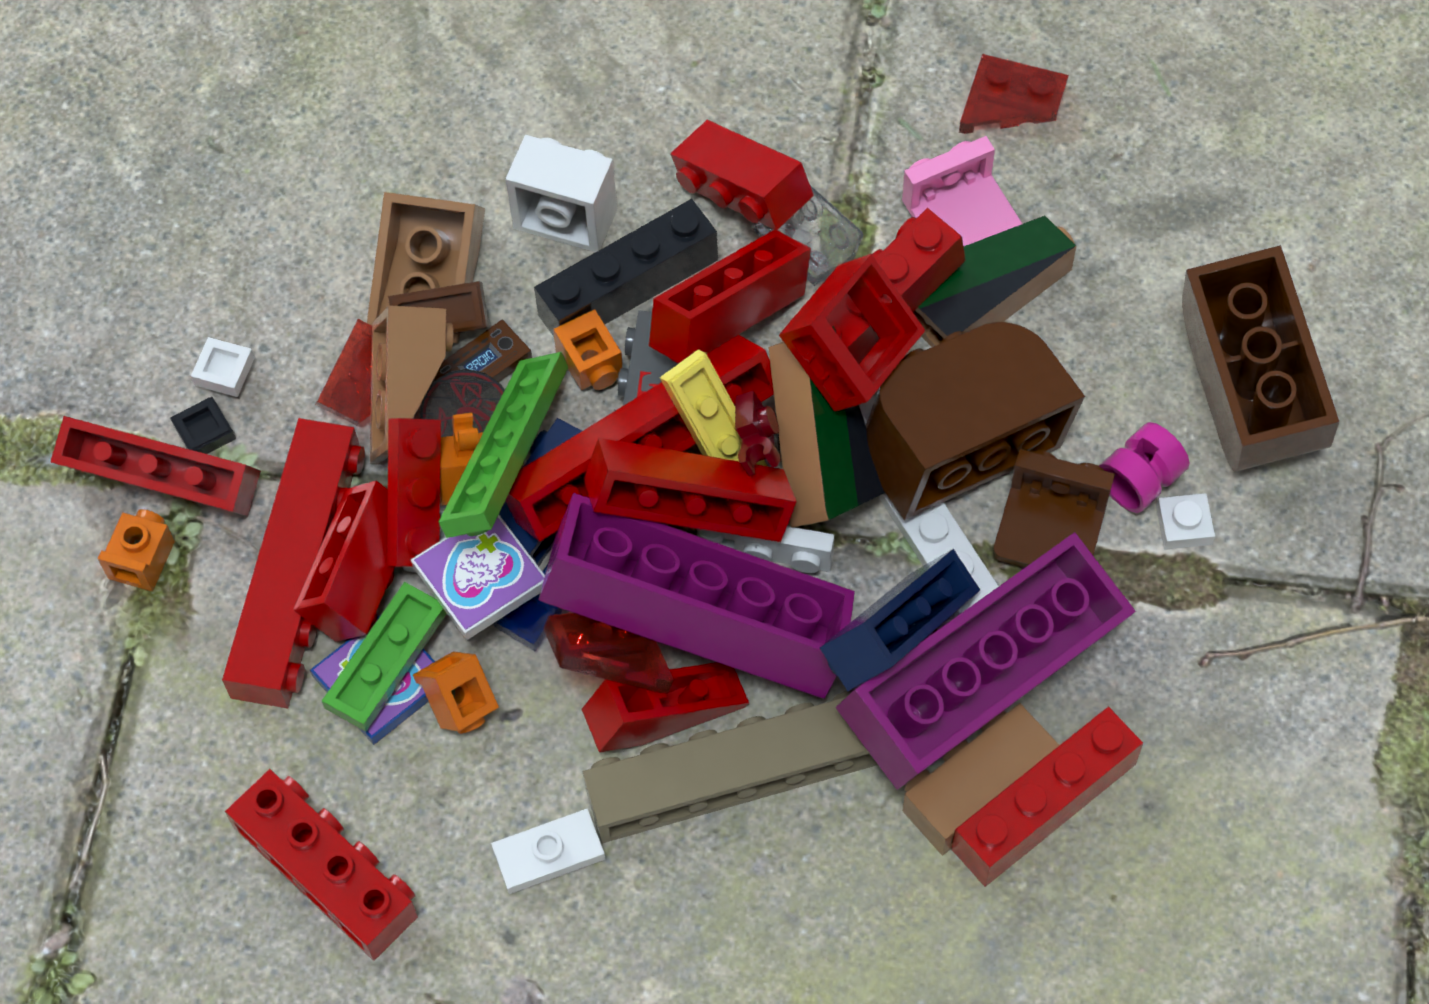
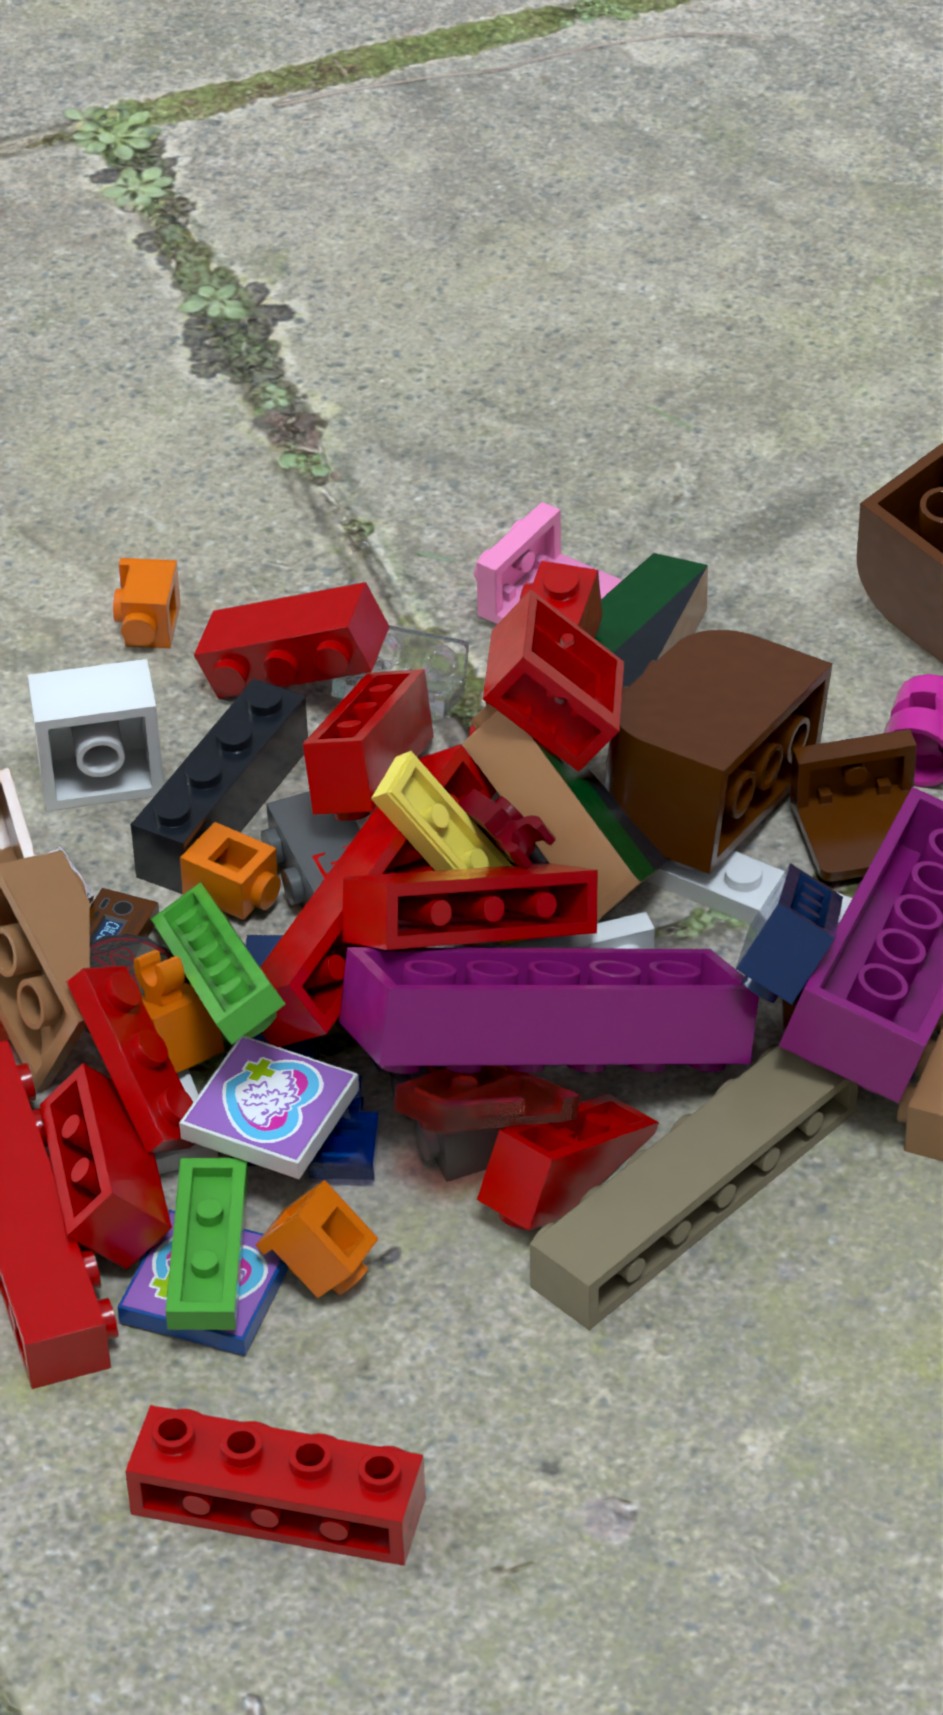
camera: 30 degrees left, 20 degrees down
(548, 851) = (535, 1359): white plate -> none
(676, 85) = (147, 602): none -> orange brick
(1012, 95) = (519, 480): clear red wing -> none

